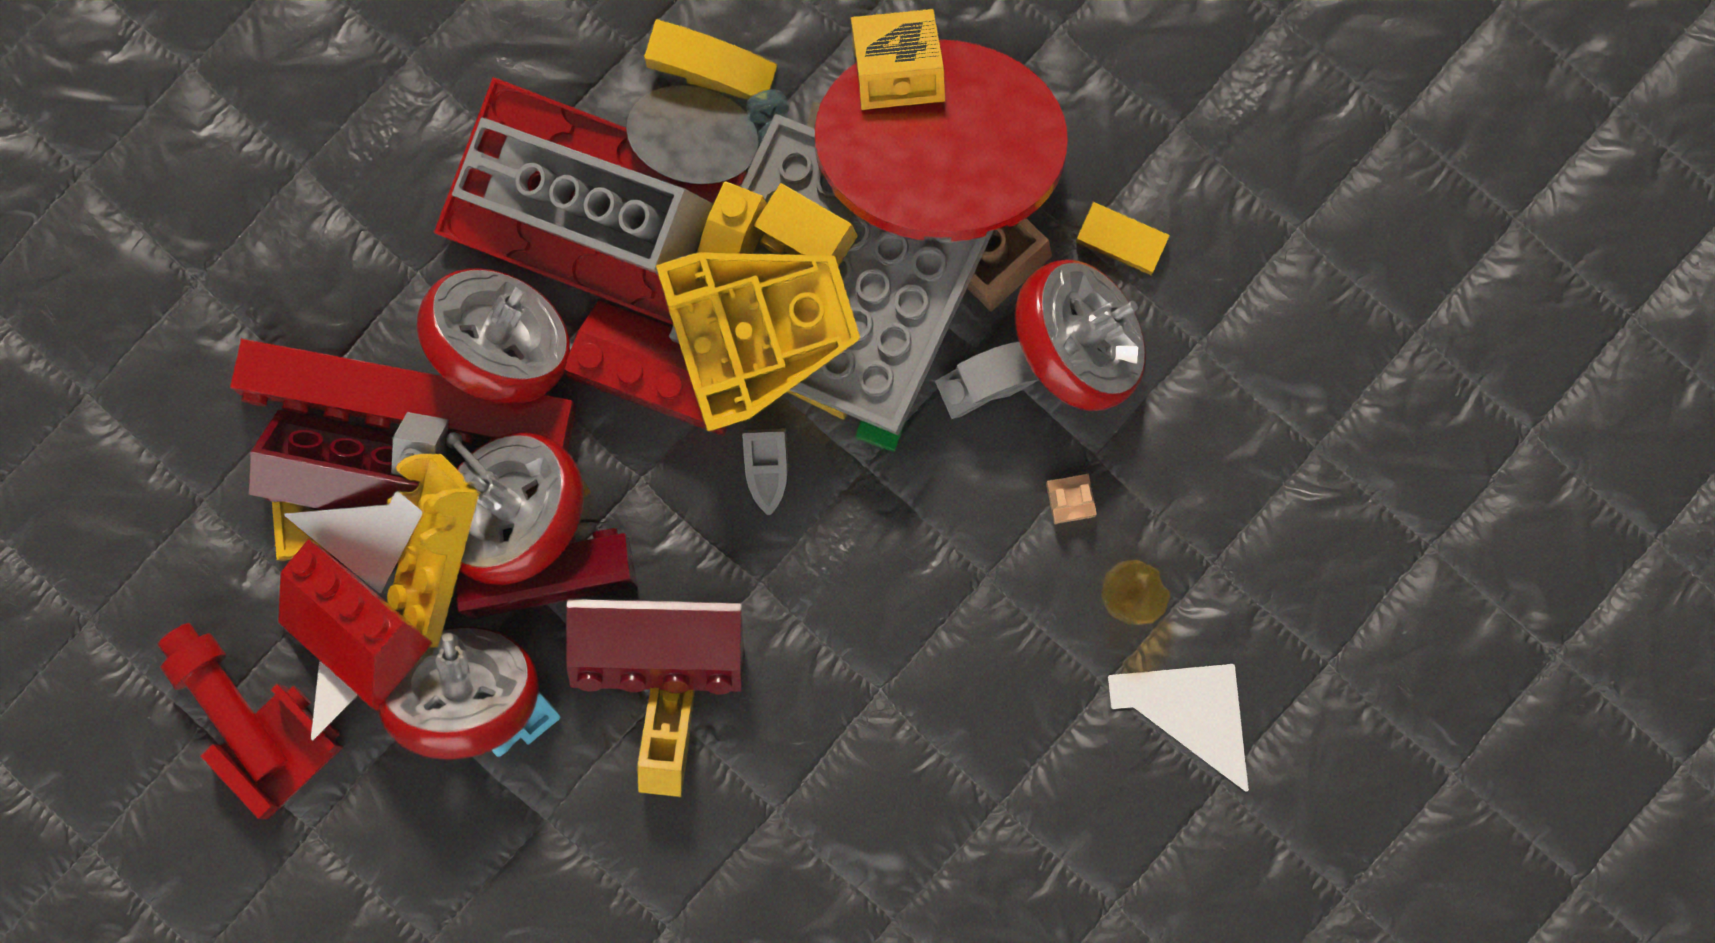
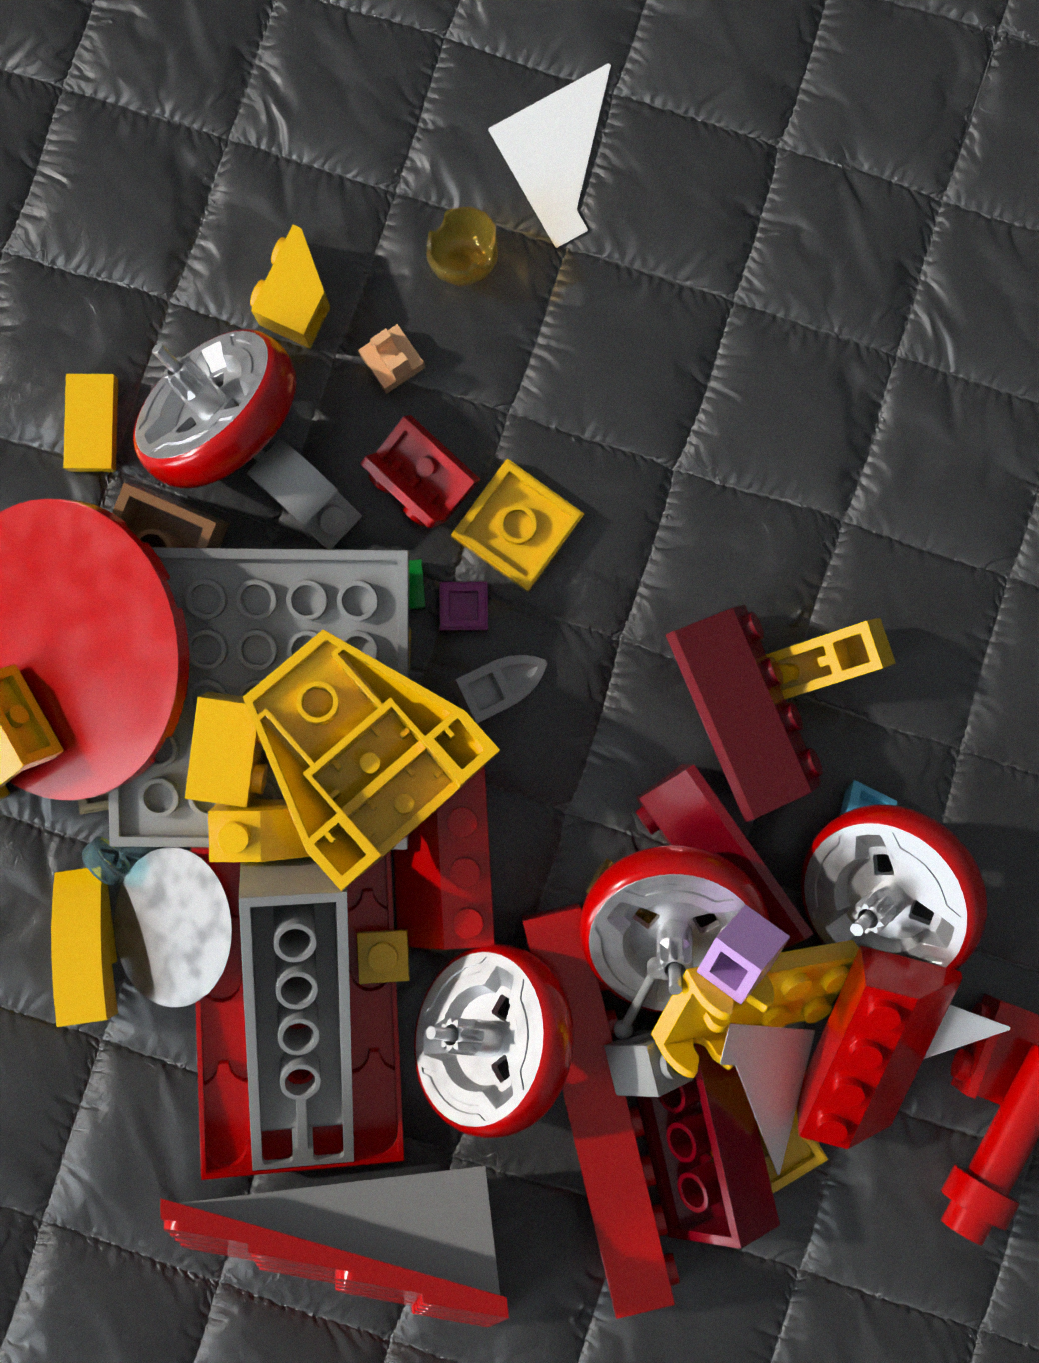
camera: 120 degrees left, 5 degrees up
(387, 186) = (383, 1239): none -> light grey piece
(470, 539) = (743, 954): none -> lavender brick
(595, 284) = (383, 956): none -> yellow plate
(842, 468) = (463, 606): none -> magenta tile
(889, 540) = (517, 525): none -> yellow tile
(963, 477) = (420, 473): none -> red bracket
(1157, 444) = (292, 295): none -> yellow slope

